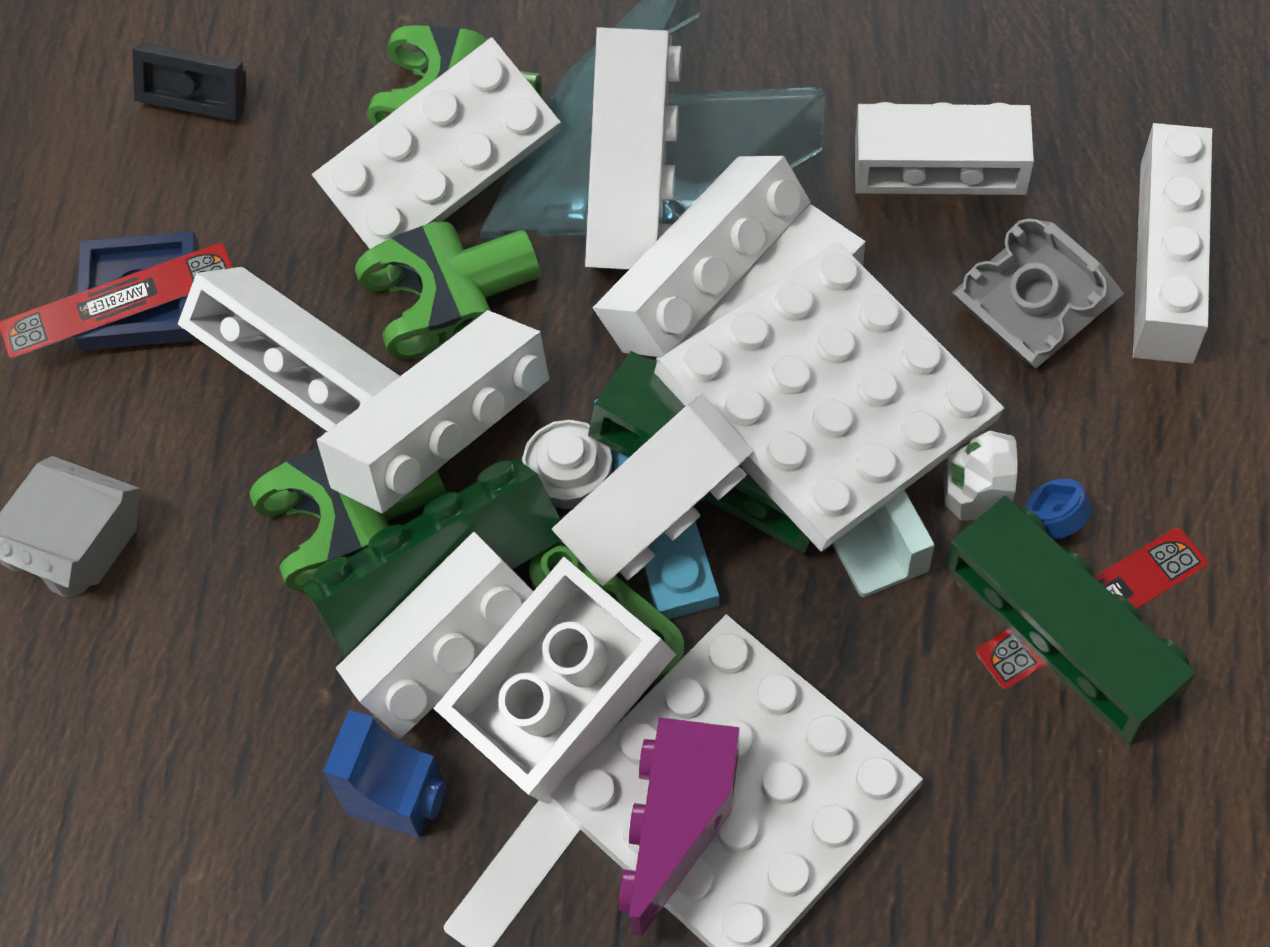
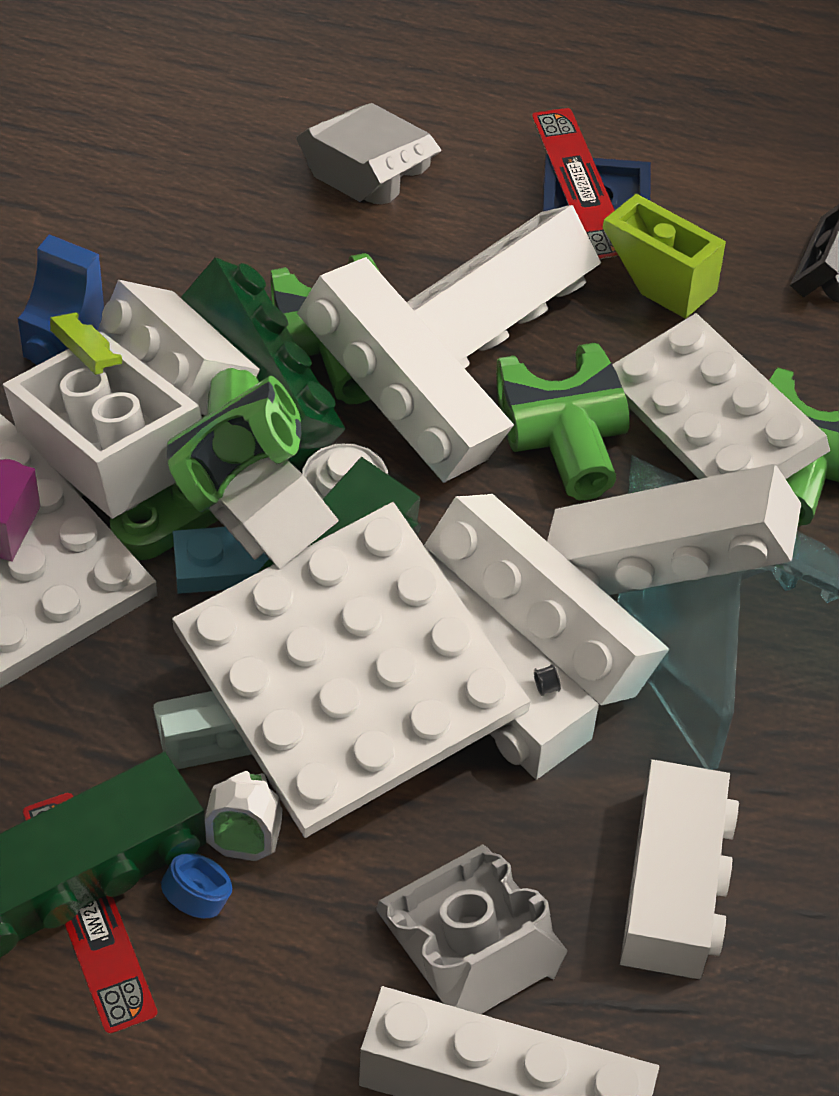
camera: 90 degrees right, 10 degrees down
(232, 203) = (666, 254): none -> lime slope
(461, 715) = (84, 342): none -> lime piece
(595, 515) = (242, 425): none -> bright green connector
(803, 237) = (547, 680): none -> black piece

